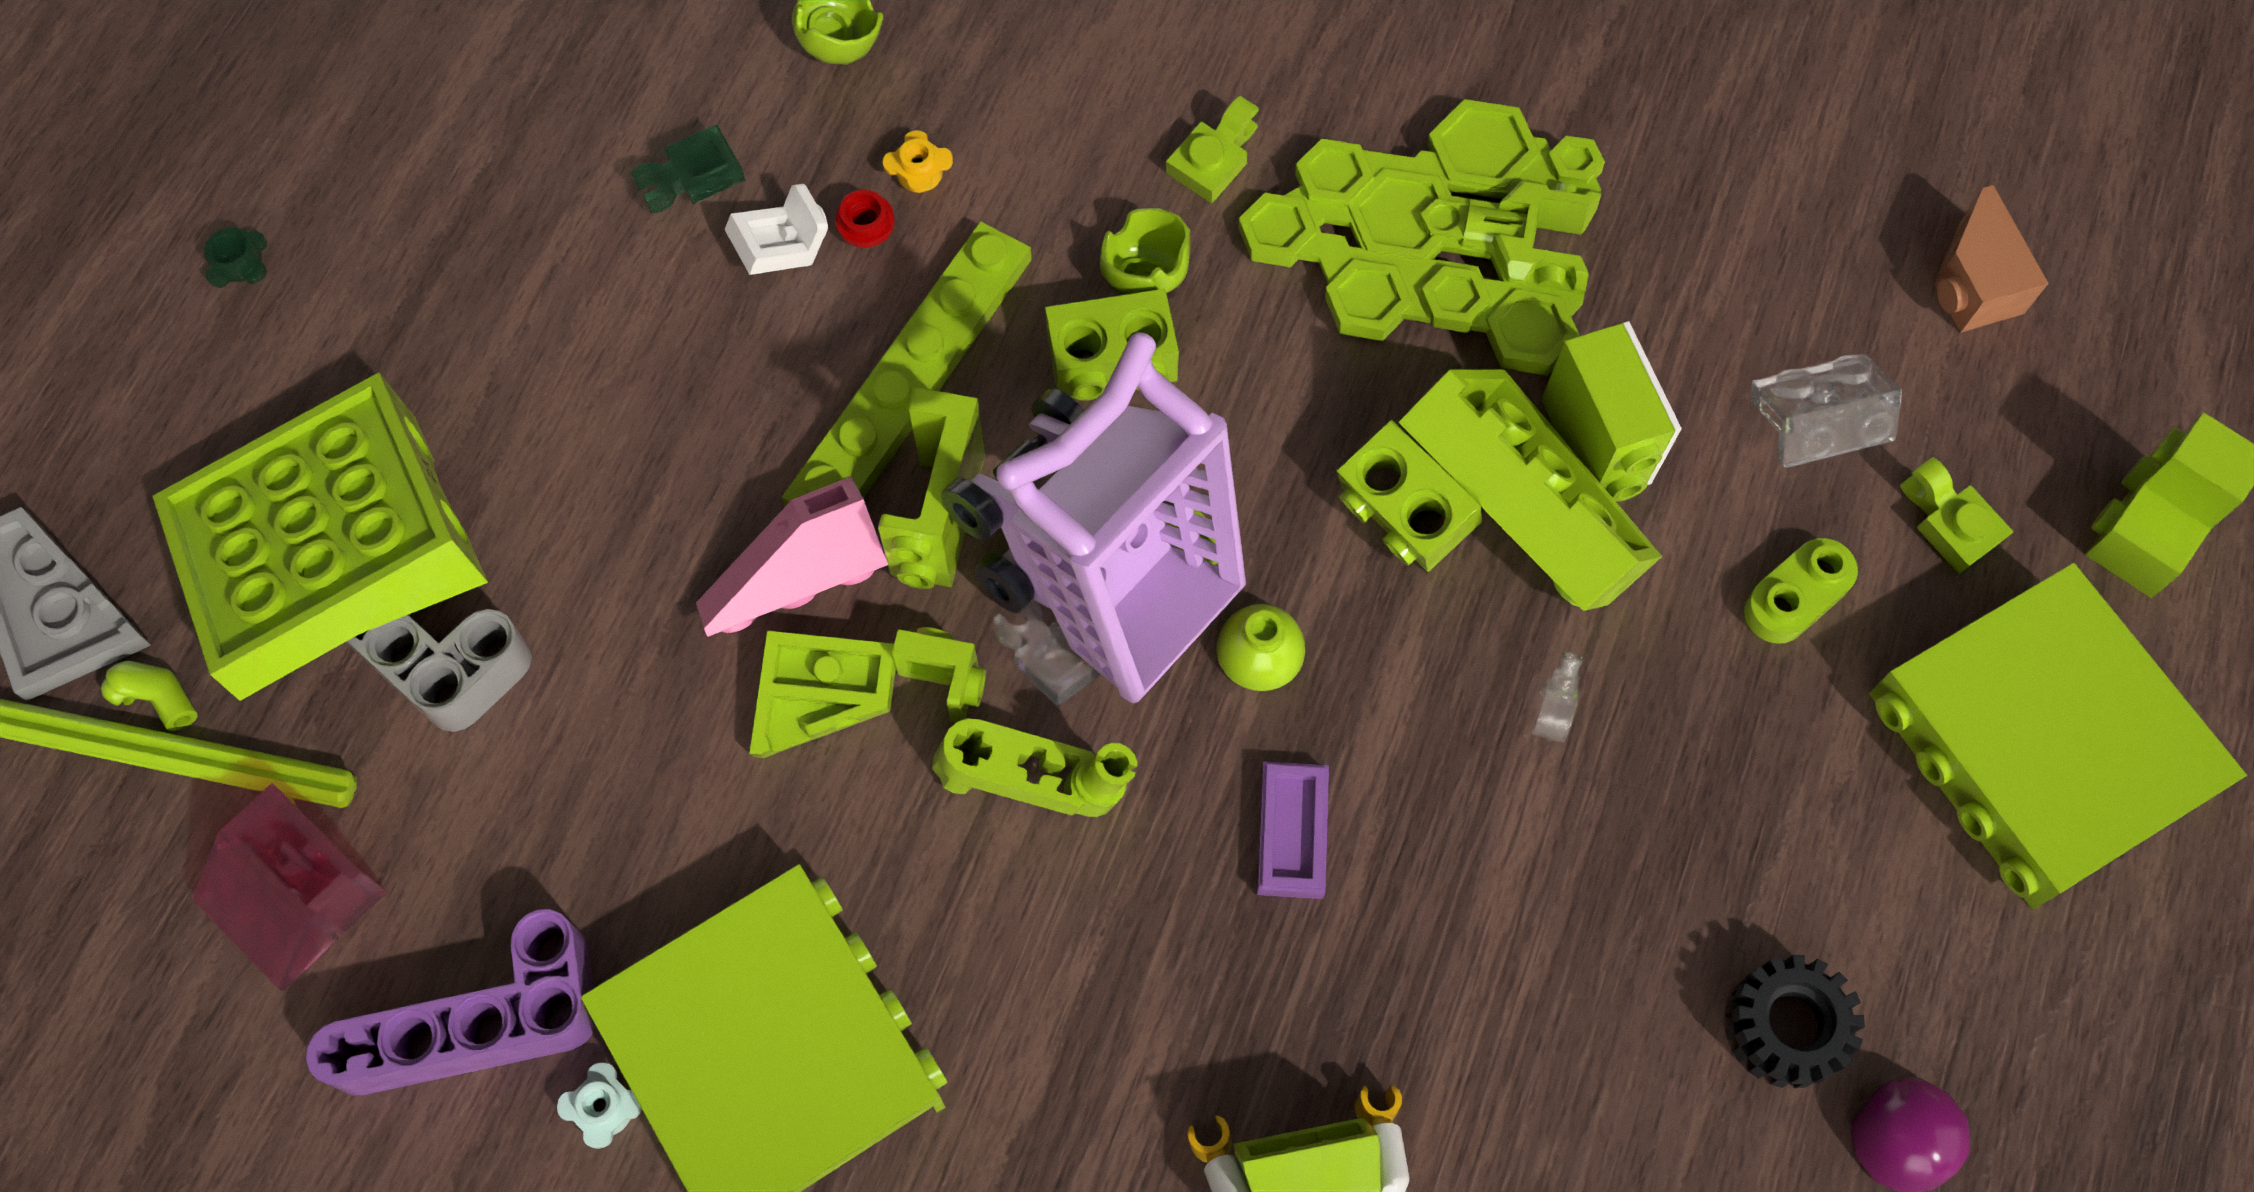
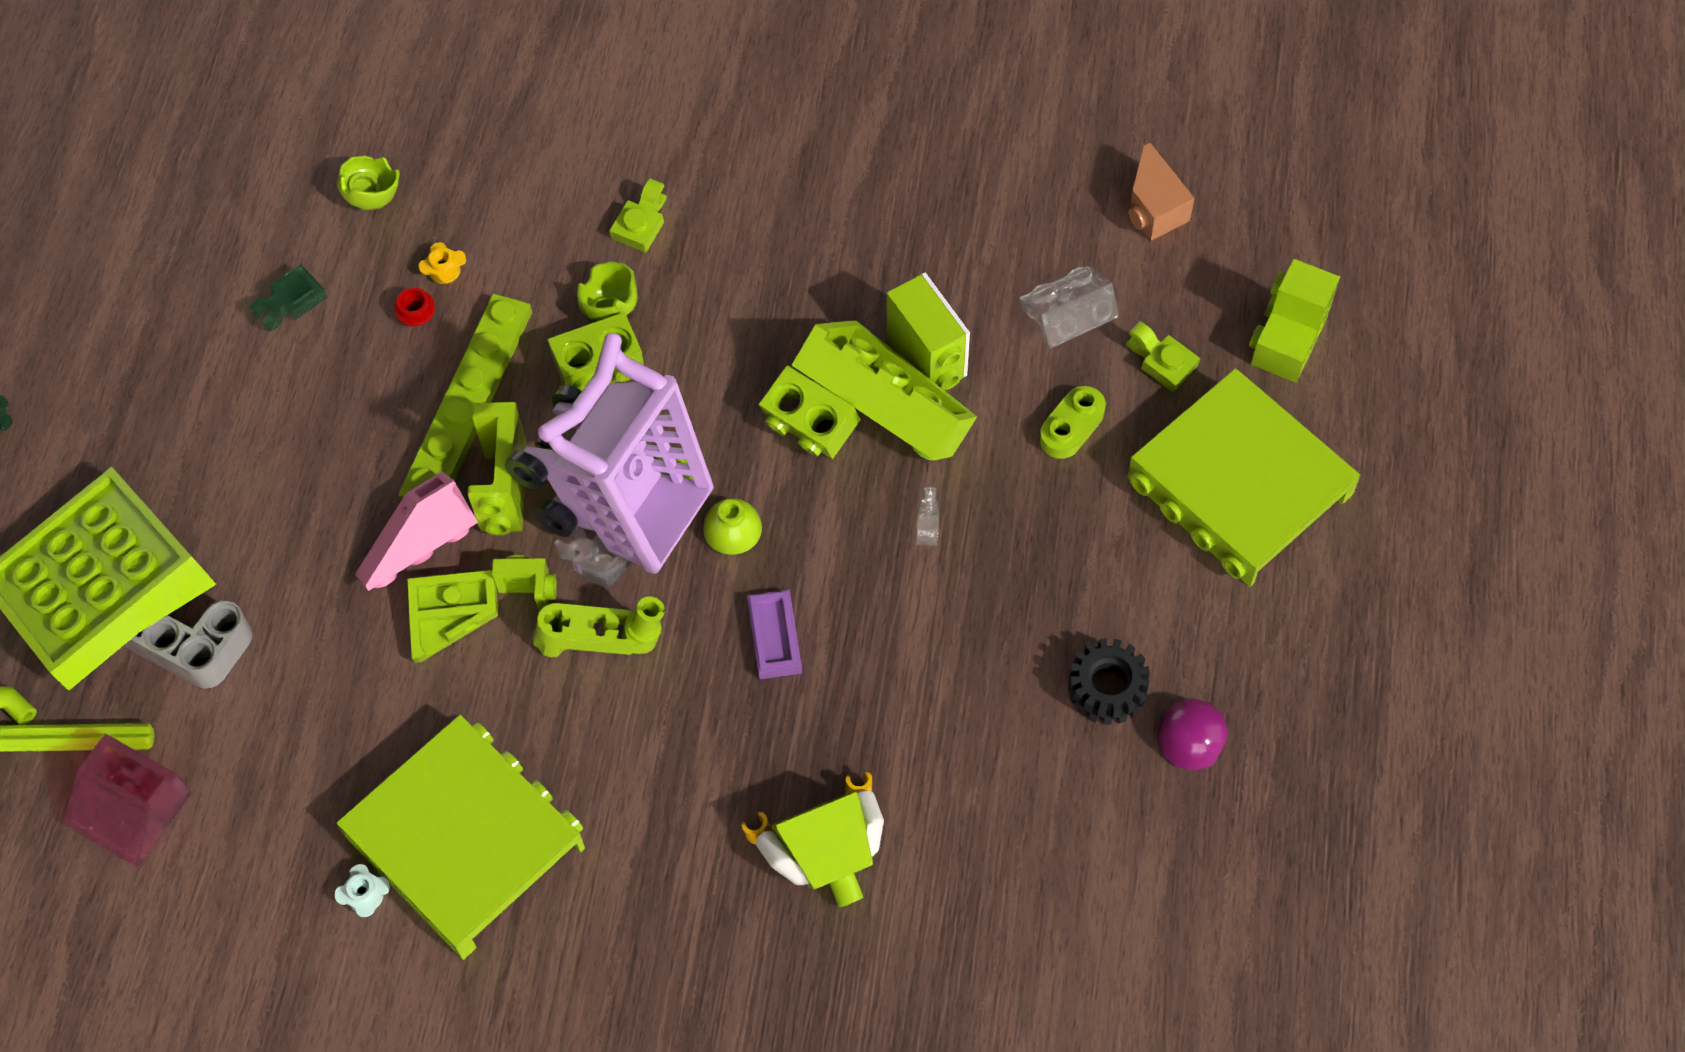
camera: 10 degrees left, 5 degrees down
(457, 1018) = (257, 855): medium lavender beam -> none
(779, 235) = (360, 328): white bracket -> none
(1407, 216) = (777, 235): lime piece -> none

